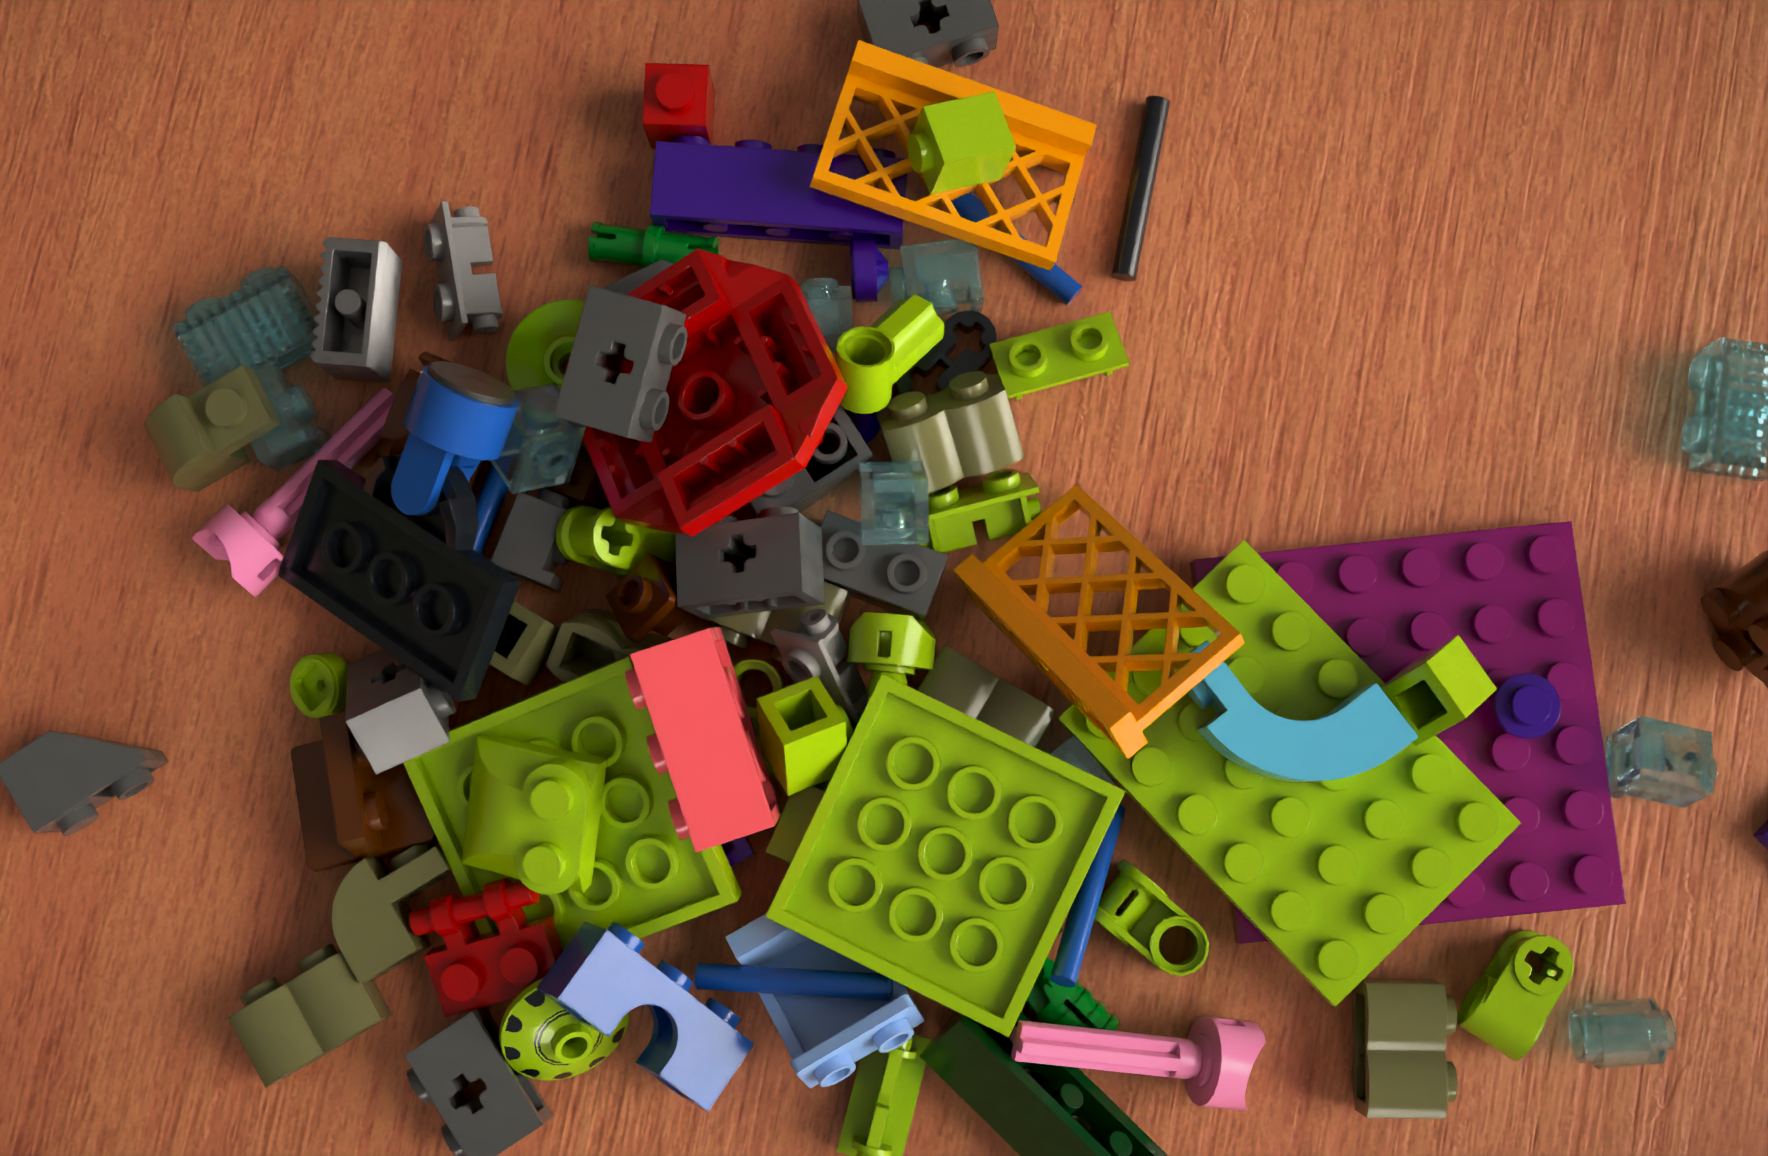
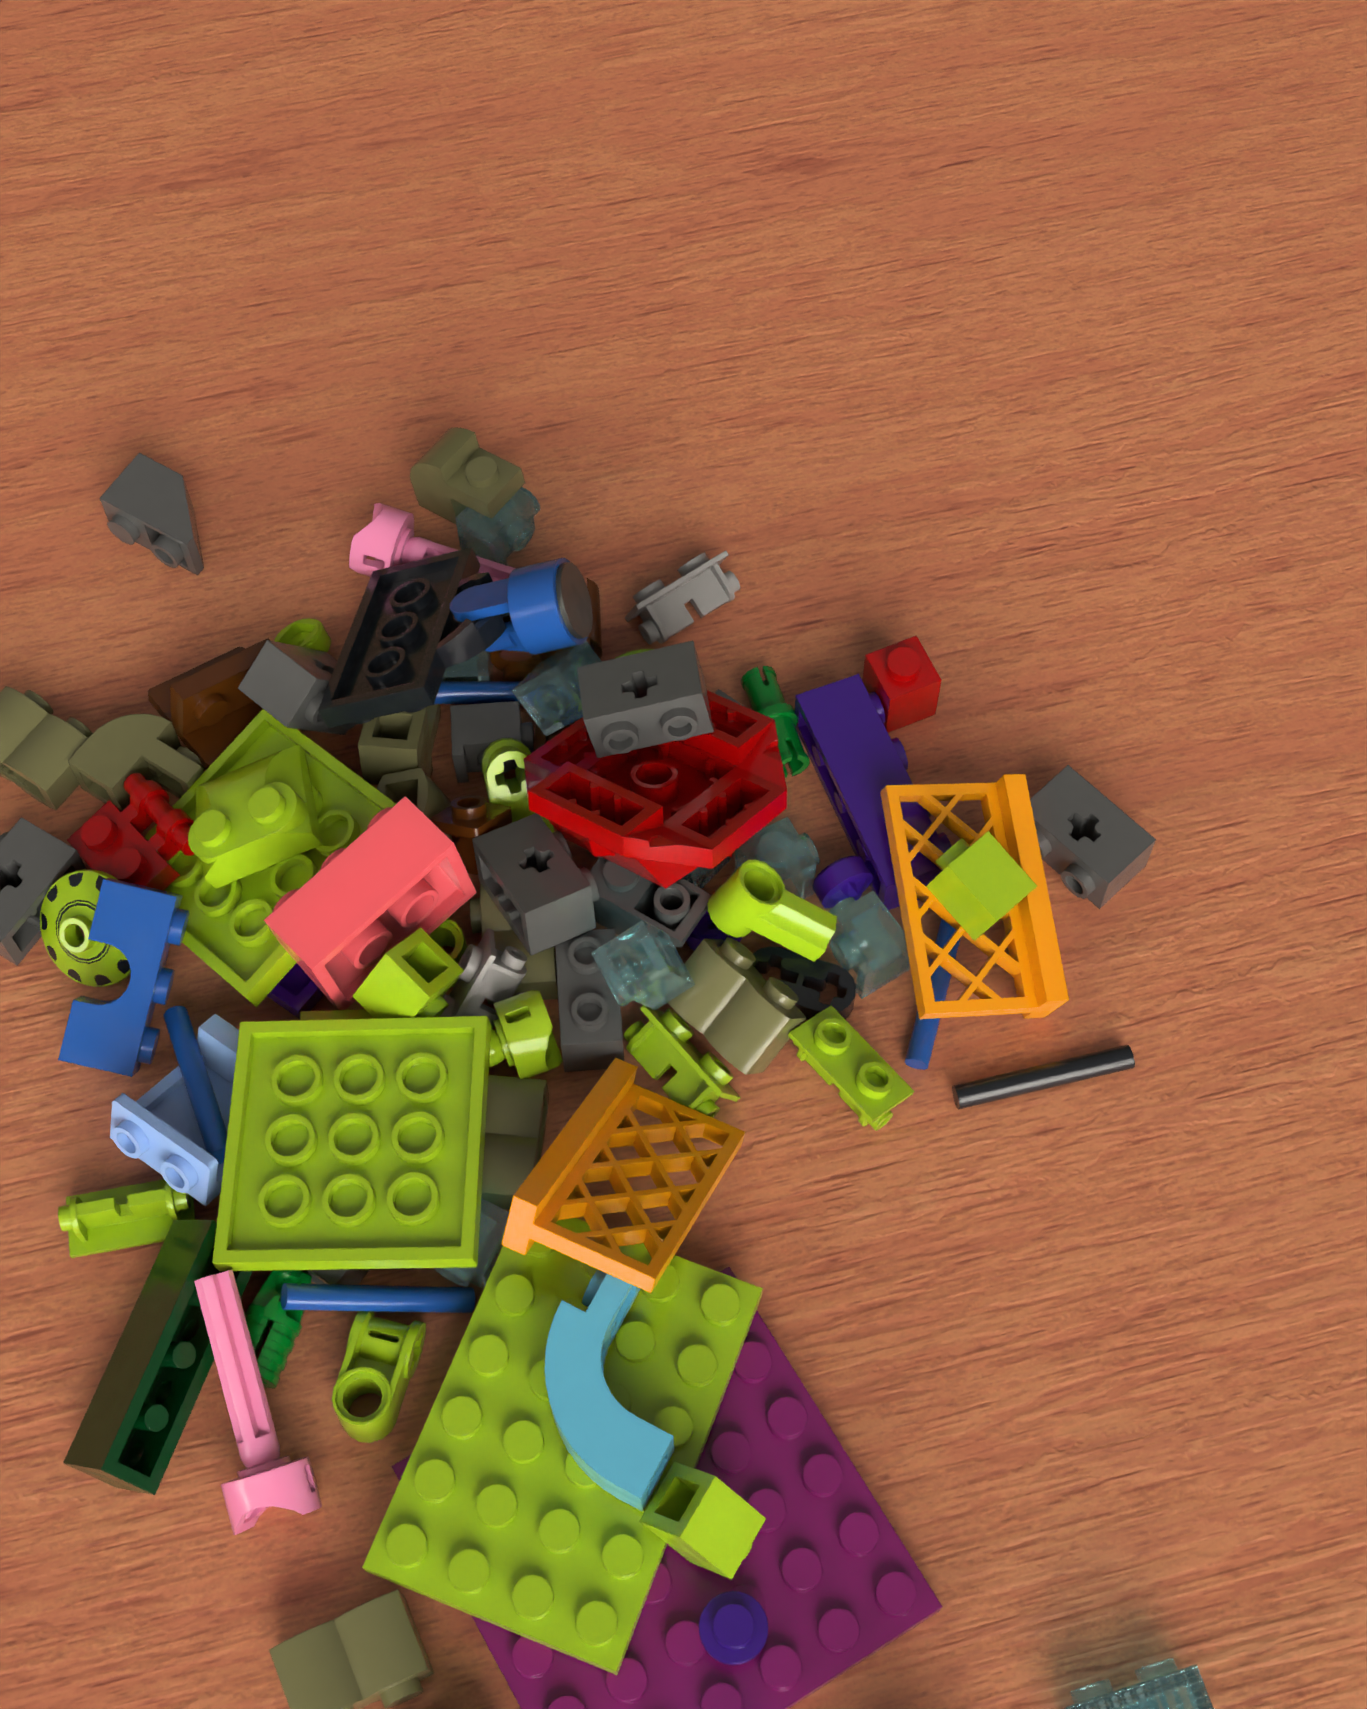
camera: 65 degrees right, 20 degrees down
(252, 327) = (566, 481): clear light blue brick -> none
(357, 309) = (611, 531): flat silver brick -> none

